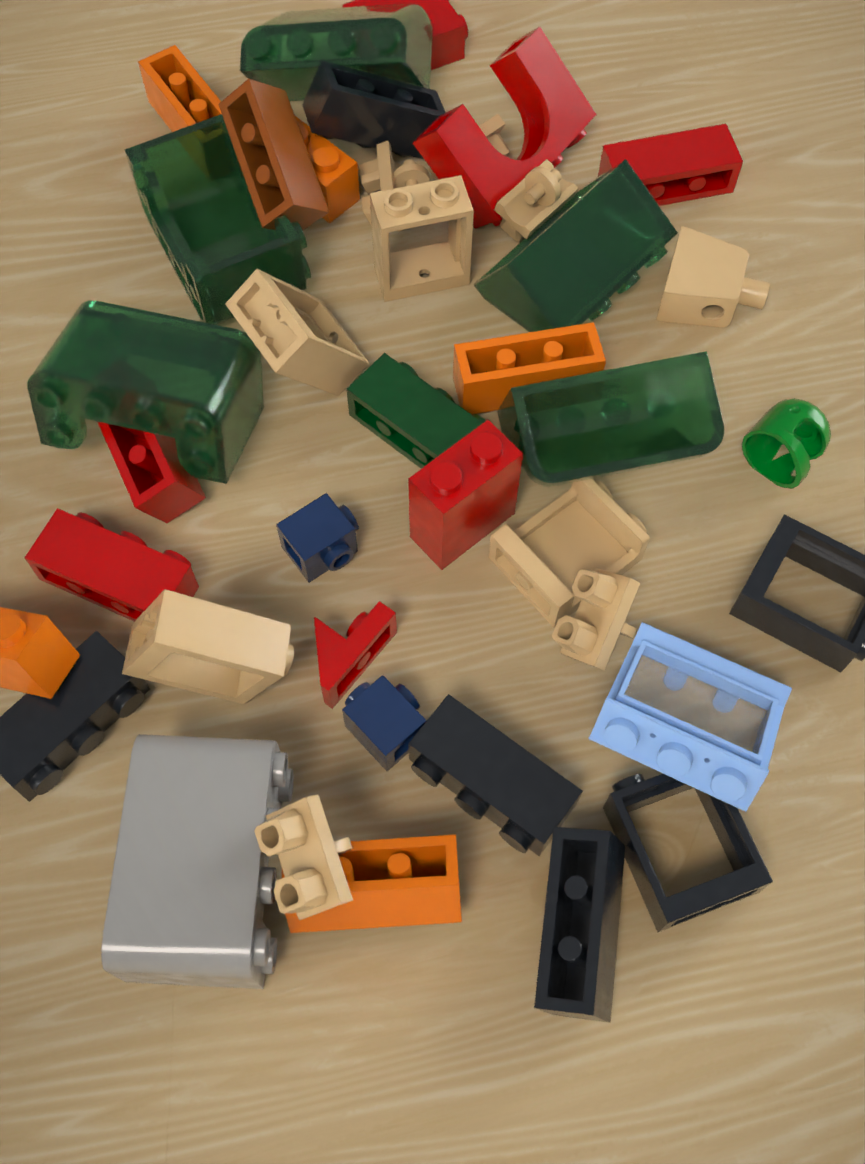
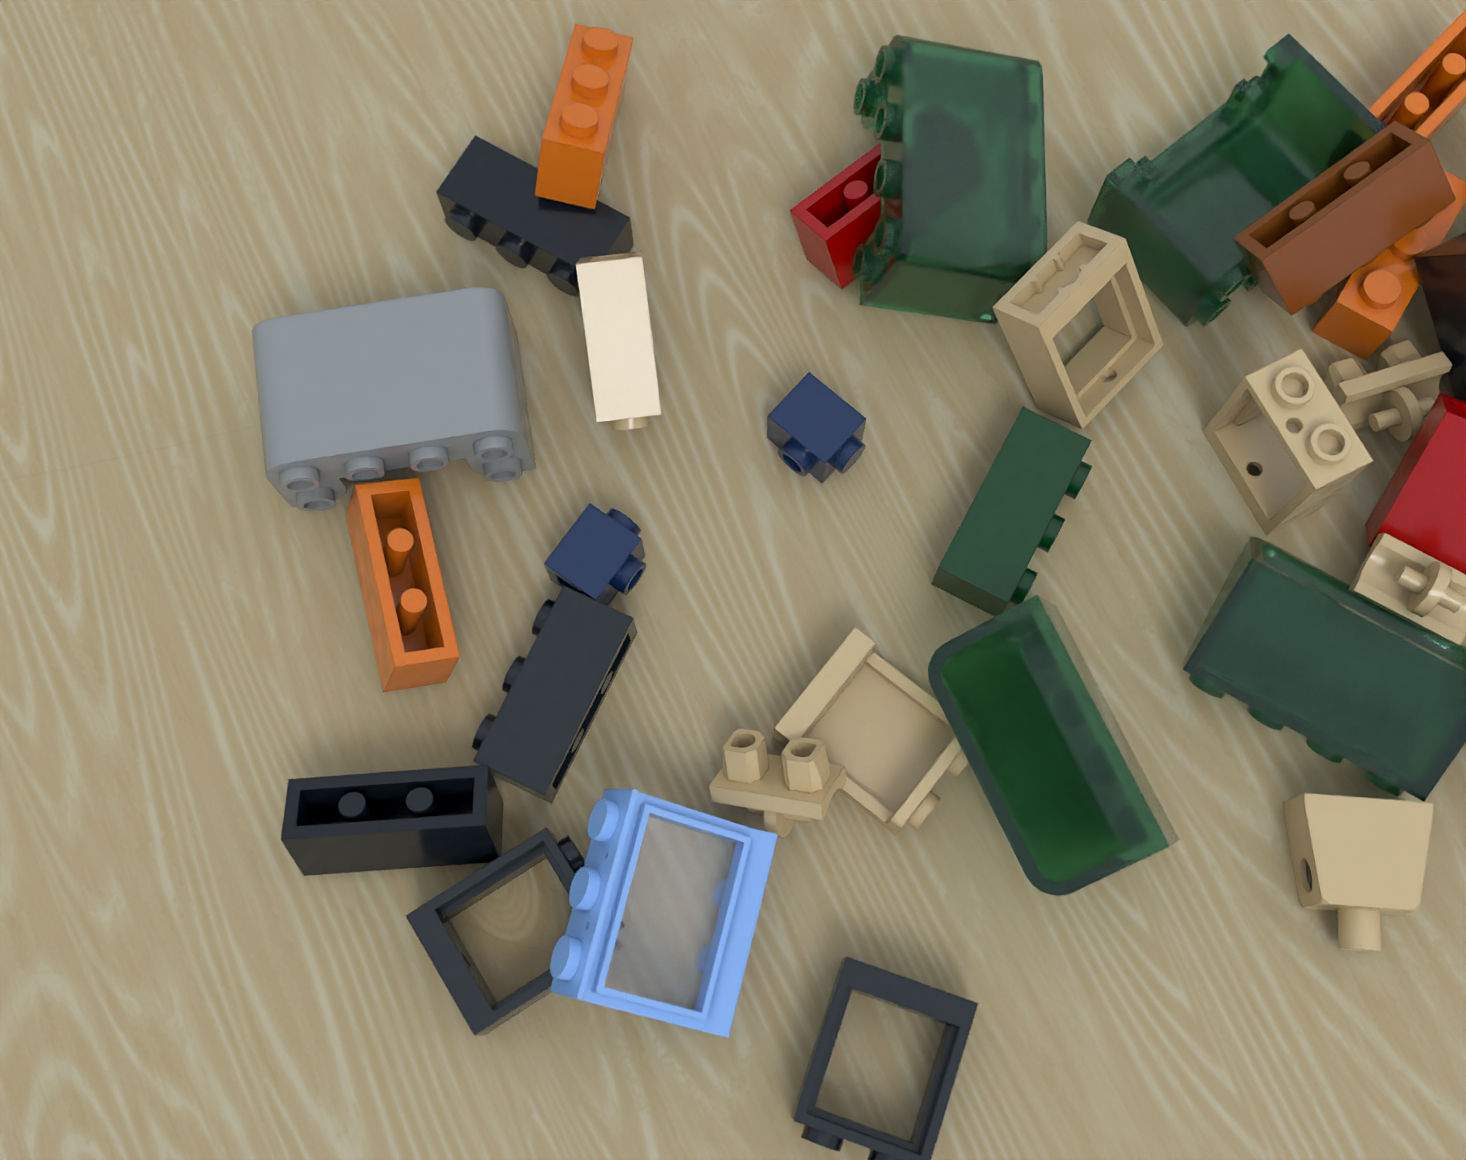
camera: 80 degrees right, 10 degrees up
(106, 566) = (719, 217): red brick -> none
(307, 856) = (388, 501): tan hips -> none
(345, 660) = (661, 494): red slope -> none
(464, 494) = (895, 578): red brick -> none
(493, 366) = (1124, 629): orange brick -> none
(798, 427) = (1117, 979): green helmet -> none

